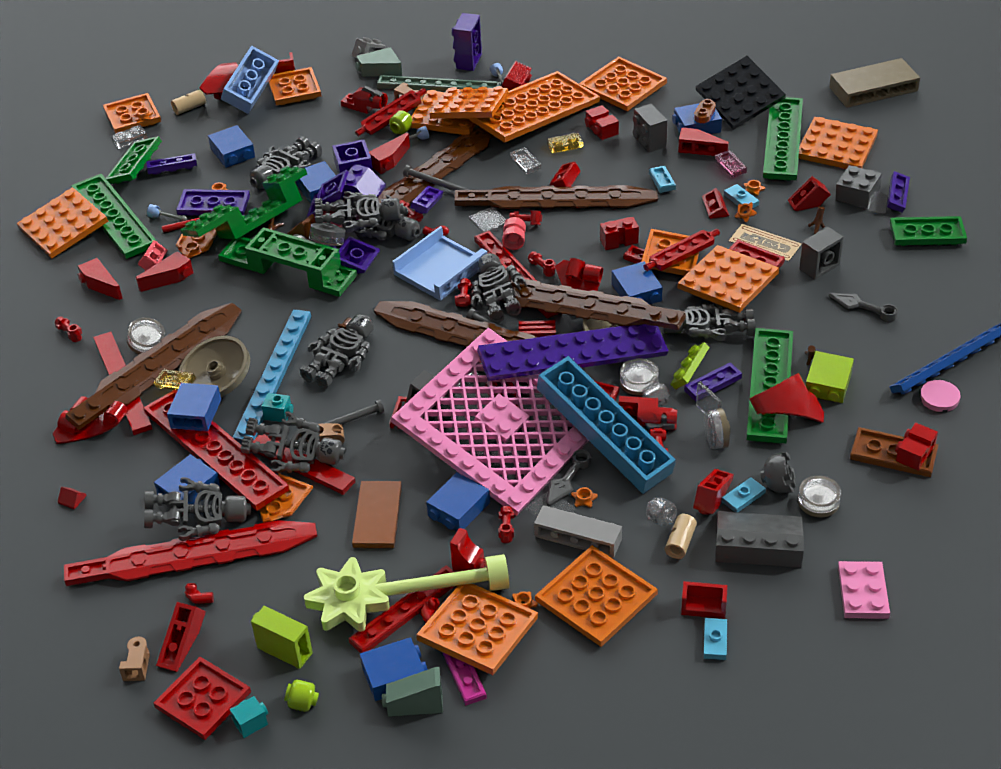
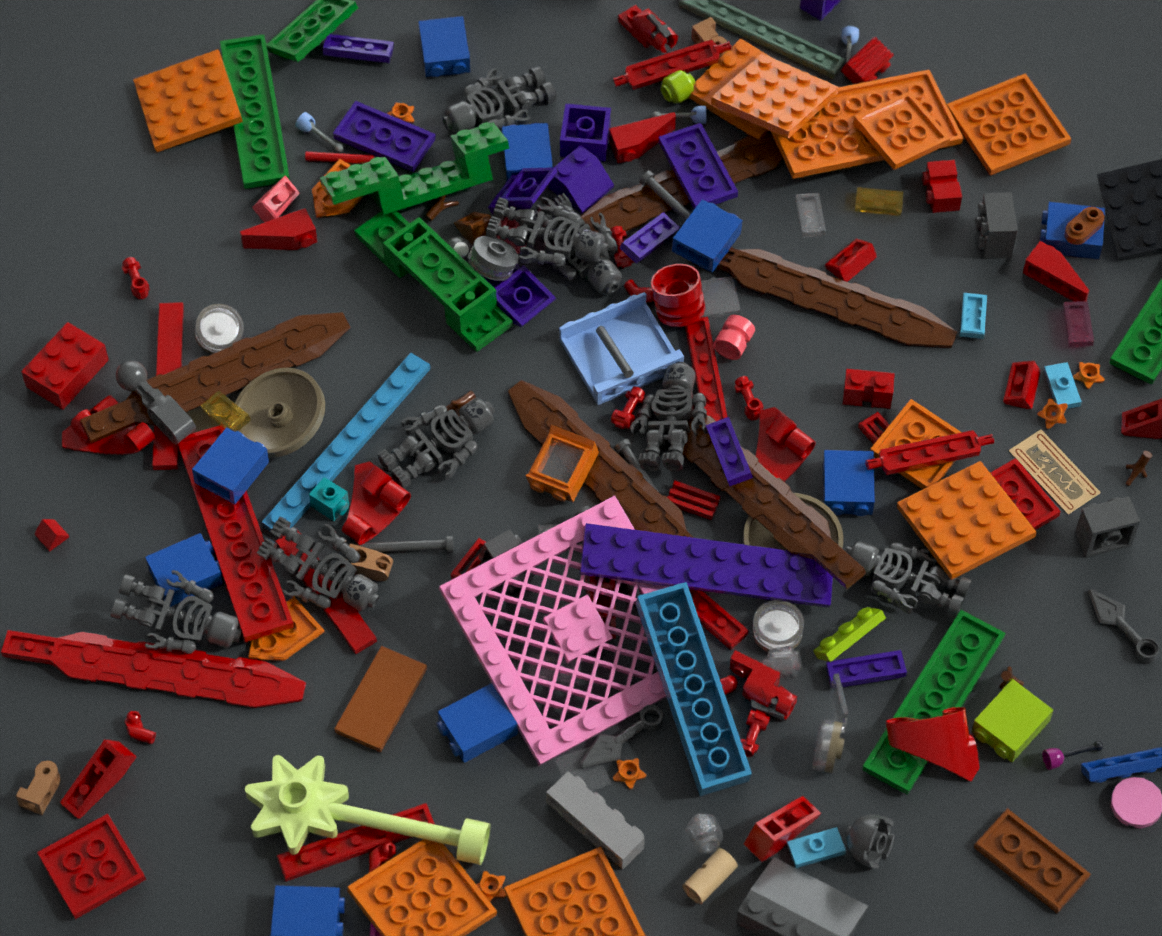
camera: 20 degrees right, 15 degrees up
(37, 392) = (65, 365): none -> red brick
(99, 279) = (196, 211): slope -> none
(126, 390) = (161, 409): none -> dark grey beam
(249, 716) = (130, 911): teal brick -> none
(281, 637) = (201, 828): lime brick -> none
(301, 695) = (194, 909): lime head -> none
(311, 397) = (373, 503): none -> red panel
(436, 333) = (562, 464): none -> orange window
(438, 155) = (698, 166): none -> dark purple plate
(439, 263) = (614, 351): none -> dark grey bar
(464, 220) = (678, 295): none -> red wheel
(465, 185) = (707, 235): none -> blue brick
(465, 553) = (450, 802): red arch -> none
(506, 532) = (512, 784): red bar -> none
(535, 217) = (775, 318): red bar -> none
(550, 287) = (729, 451): none -> dark purple plate
(560, 99) = (901, 130): none -> orange plate
(819, 496) = (901, 889): clear piece -> none
(869, 388) = (1054, 757): none -> magenta hinge
(916, 446) = (1056, 870): red brick -> none

